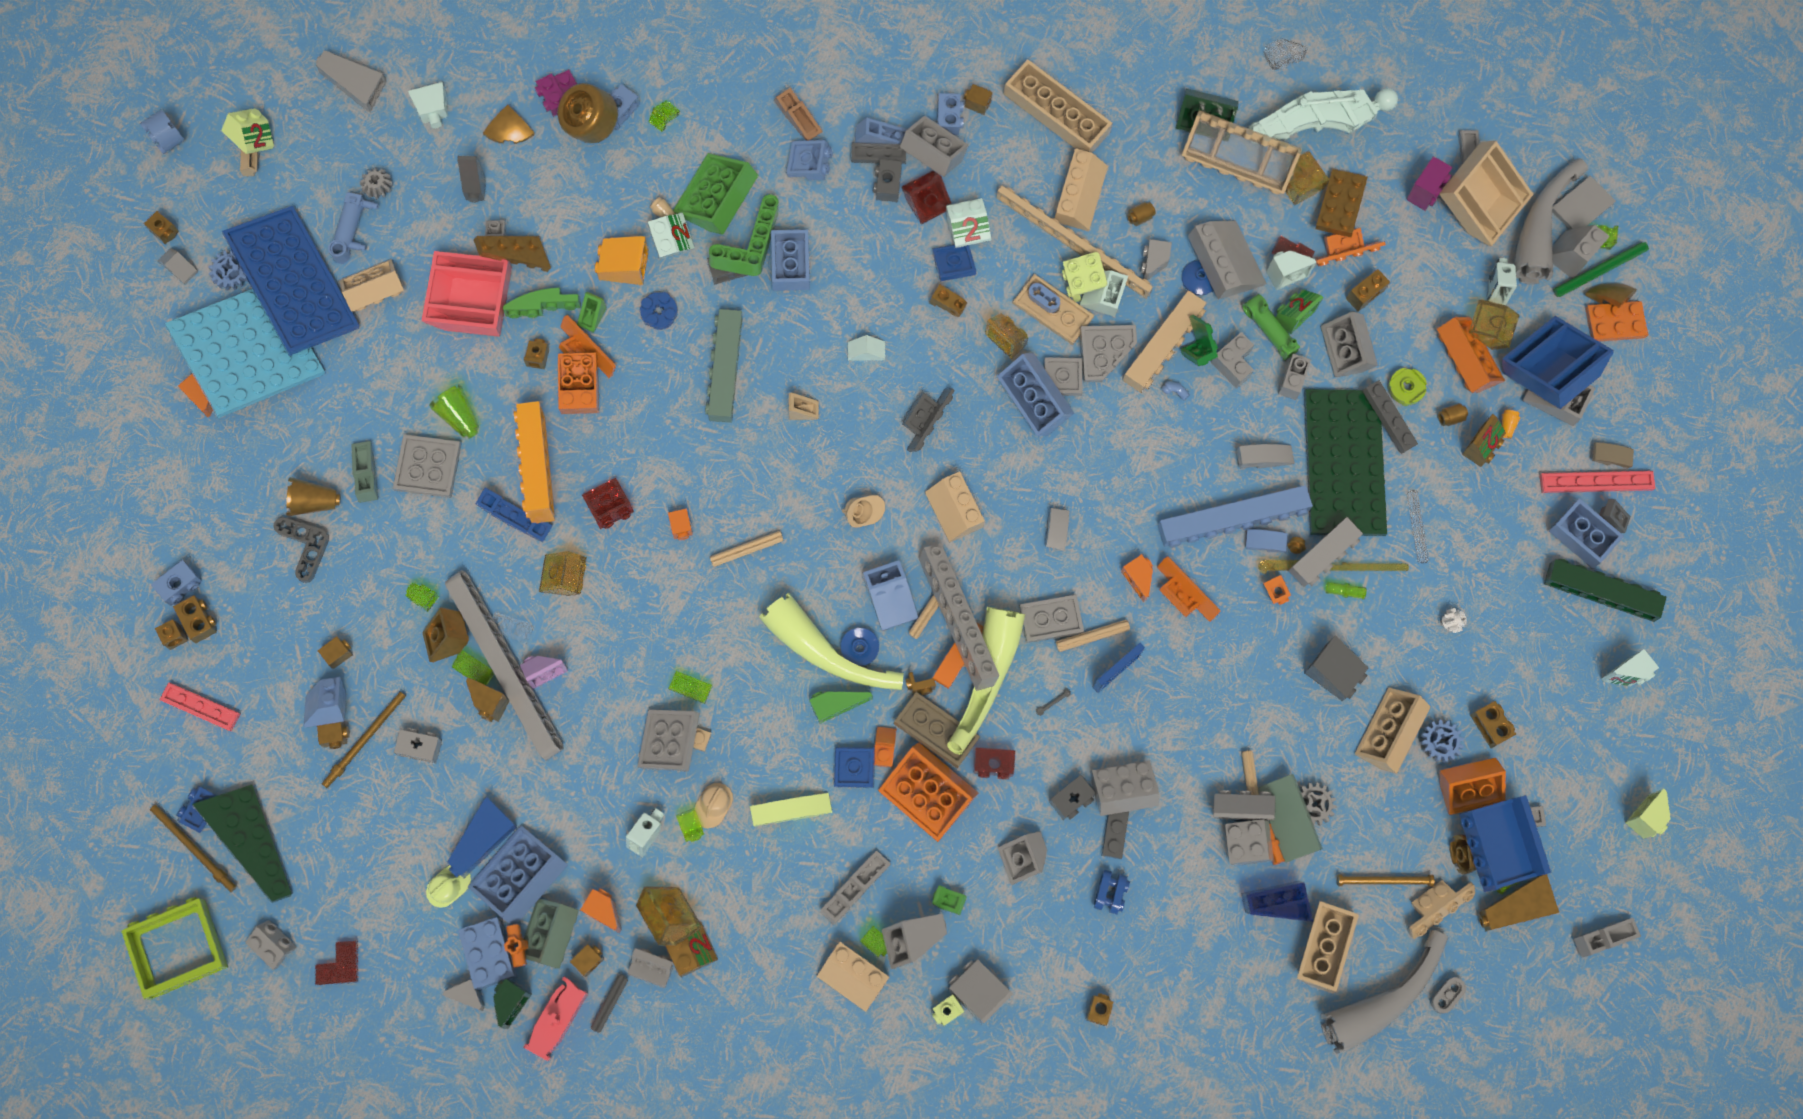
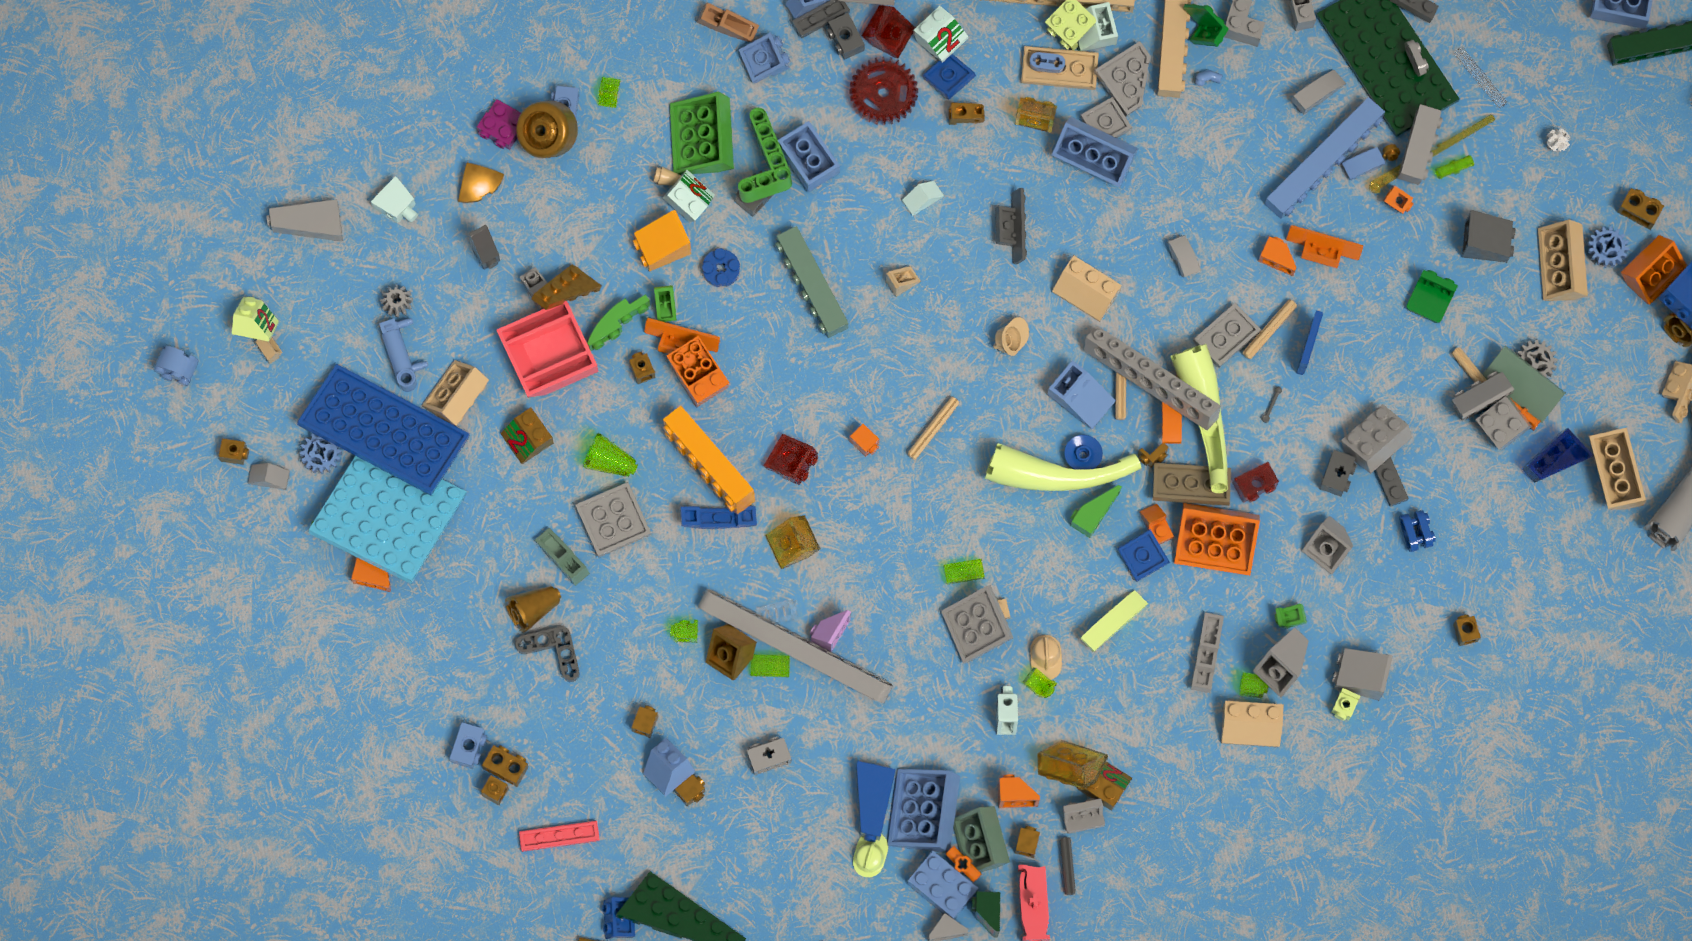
camera: 30 degrees left, 0 degrees up
(338, 770) = (714, 816): pearl gold bar -> none
(405, 354) = (527, 436): none -> pearl gold slope
(487, 701) = (802, 682): pearl gold slope -> none
(887, 258) = (889, 106): none -> clear red gear
(1254, 691) = (1431, 296): none -> green bracket
(1370, 469) = (1413, 51): none -> light grey plate
(1409, 880) = (1629, 389): pearl gold bar -> none

